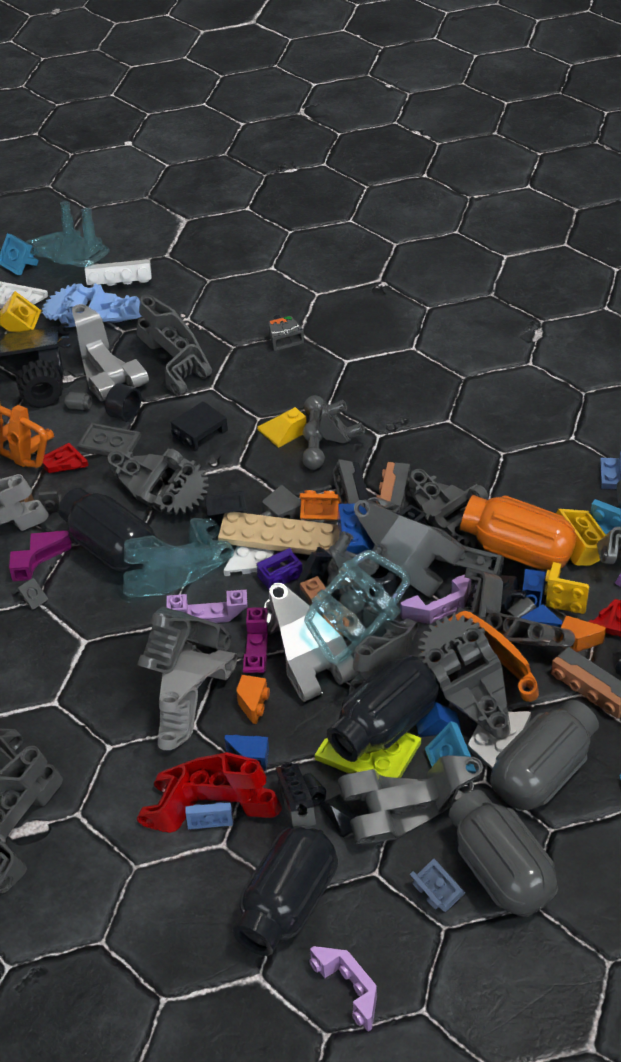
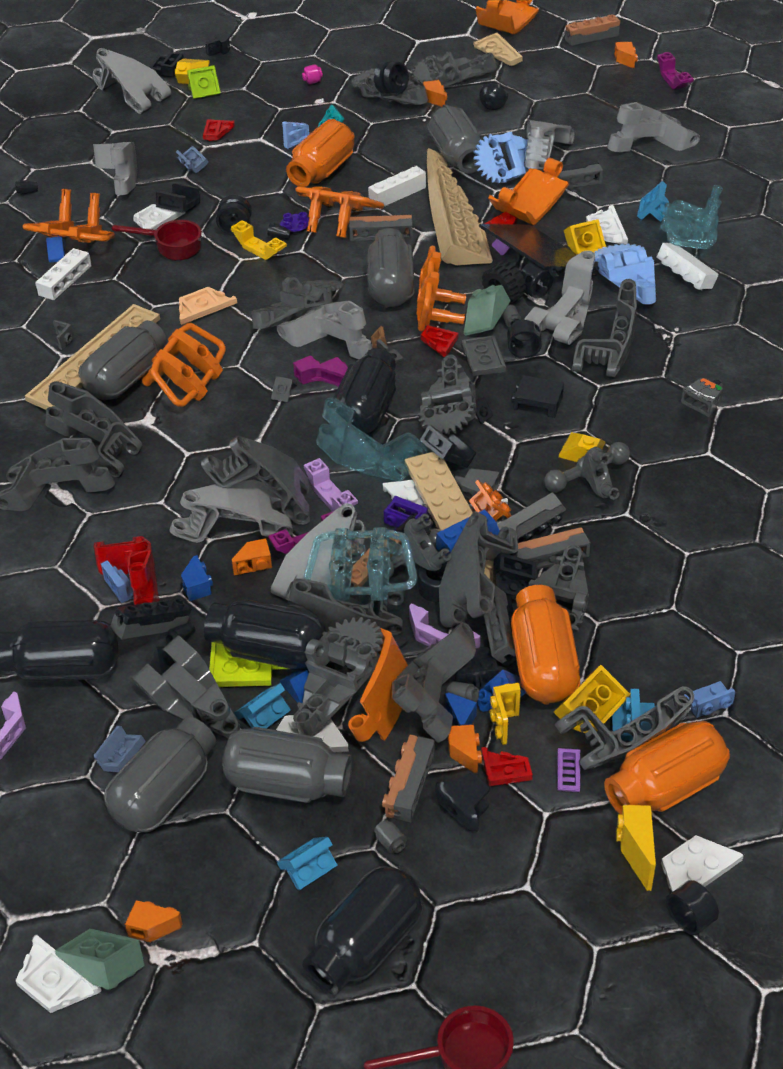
camera: 60 degrees right, 0 degrees up
(60, 412) = (485, 309): none -> sand green slope

